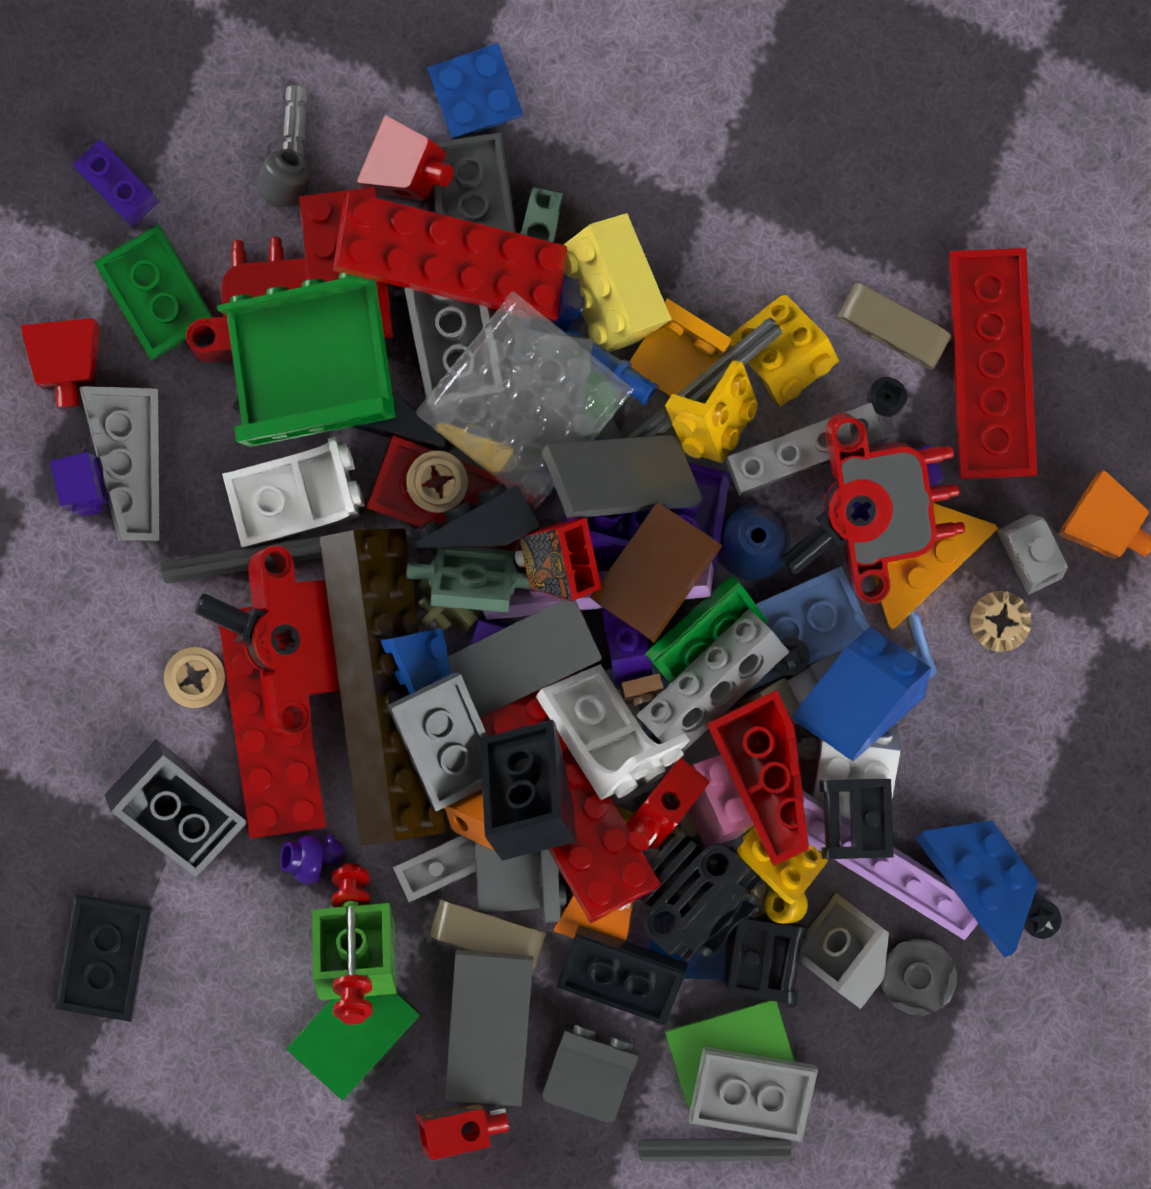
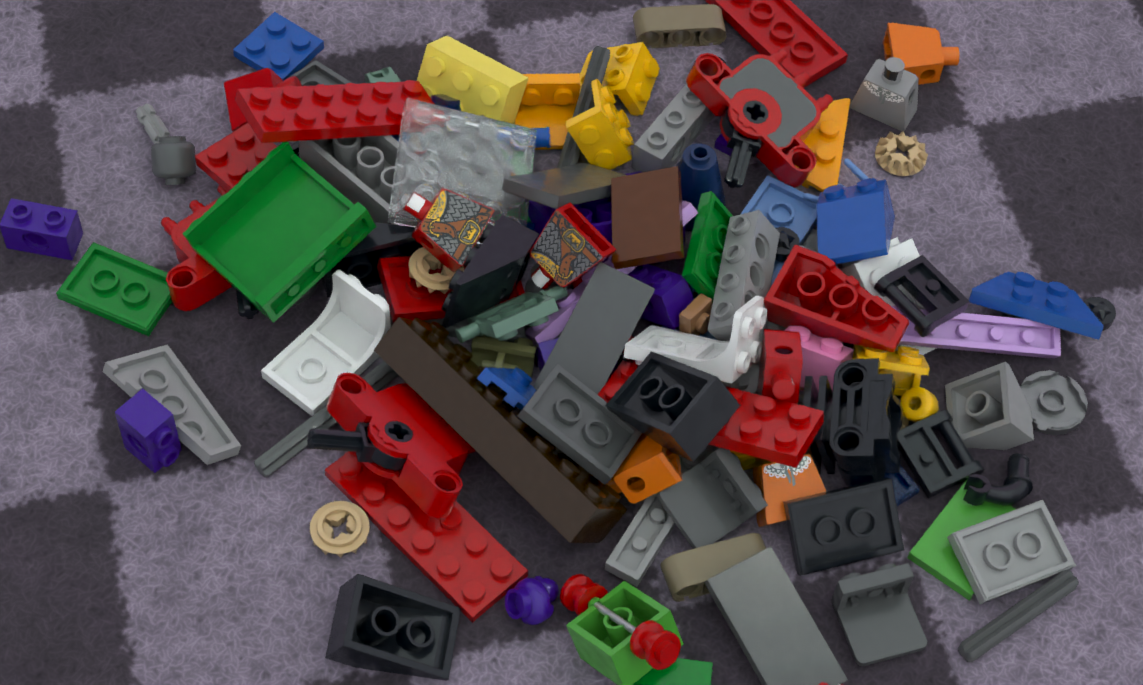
camera: 45 degrees left, 30 degrees down
(63, 356) = (71, 363): red torso -> none
(461, 462) = (448, 225): none -> torso
(807, 1039) = (1014, 489): none -> black piece

